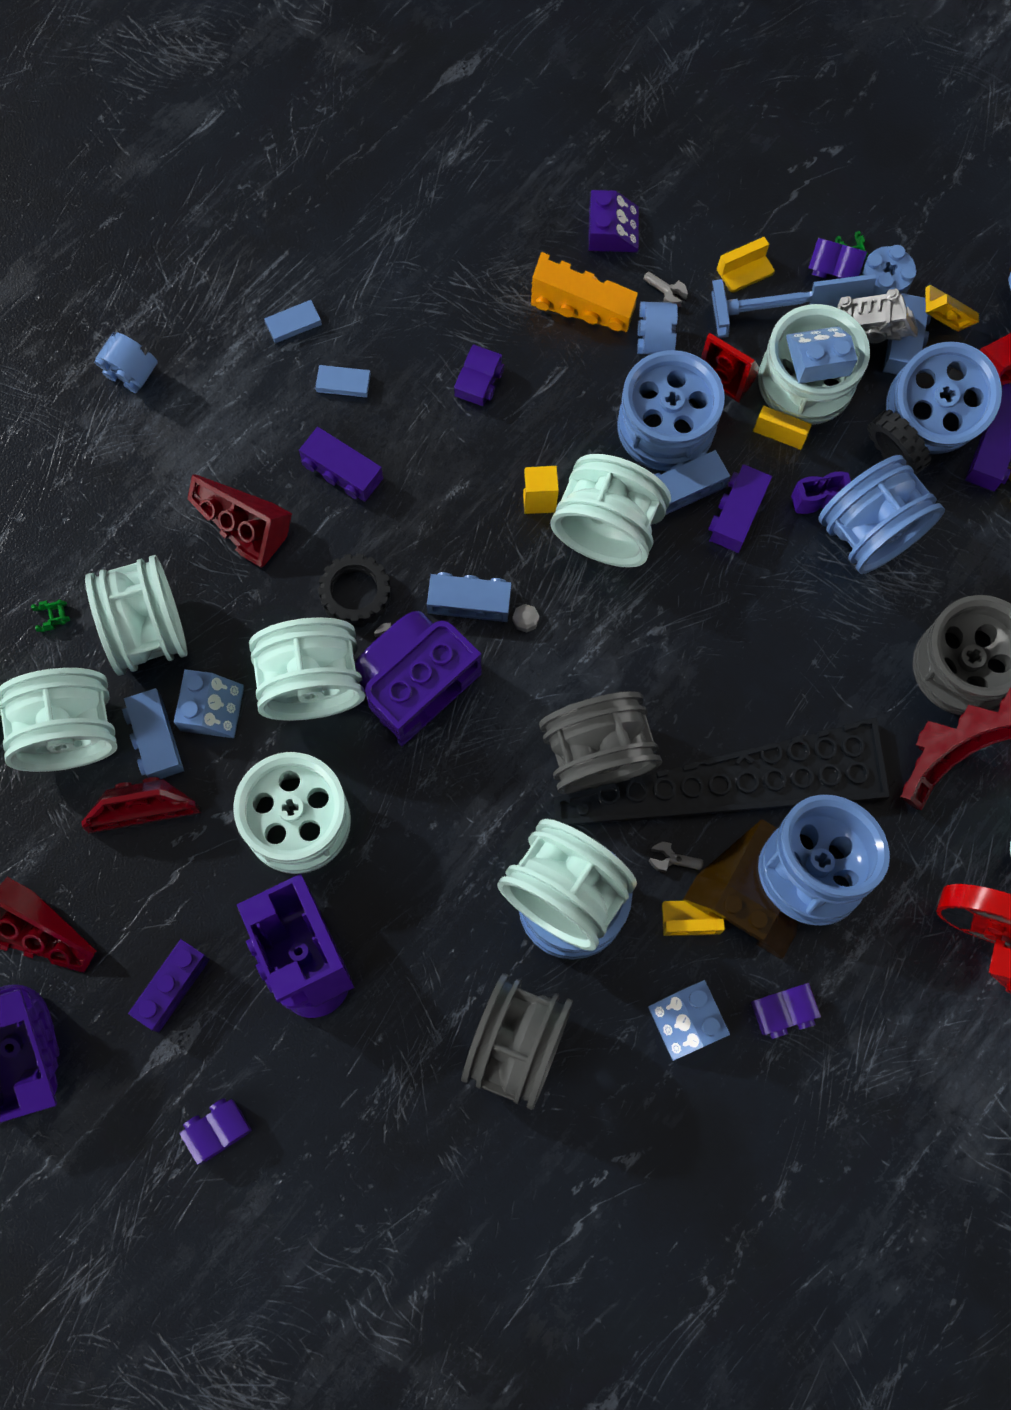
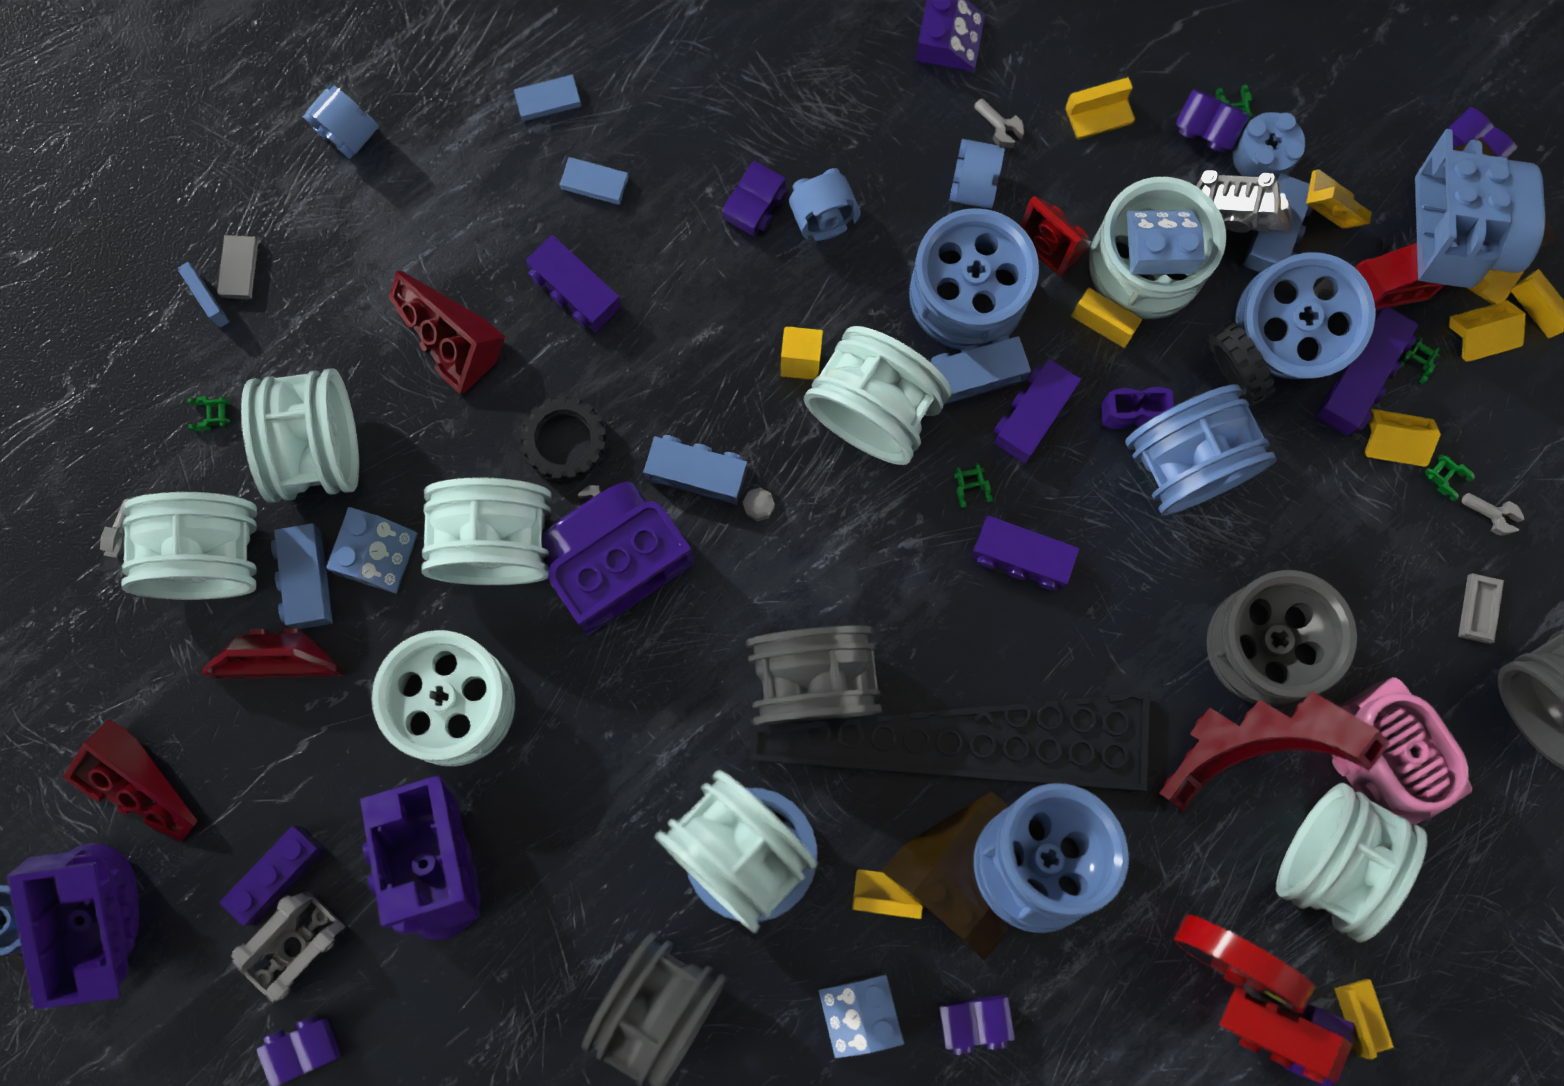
camera: 10 degrees right, 5 degrees up
(31, 519) = (203, 295): none -> medium blue tile
(56, 493) = (237, 267): none -> light grey tile
(178, 1035) = (273, 937): none -> light grey piece
(537, 371) = (823, 205): none -> medium blue brick
(581, 295) = (894, 118): light orange wedge -> none
(673, 859) = (880, 821): light grey bar -> none
(705, 572) = (983, 484): none -> green piece
(752, 622) = (1024, 553): none -> dark purple brick
(823, 292) = (1183, 162): medium blue piece -> none

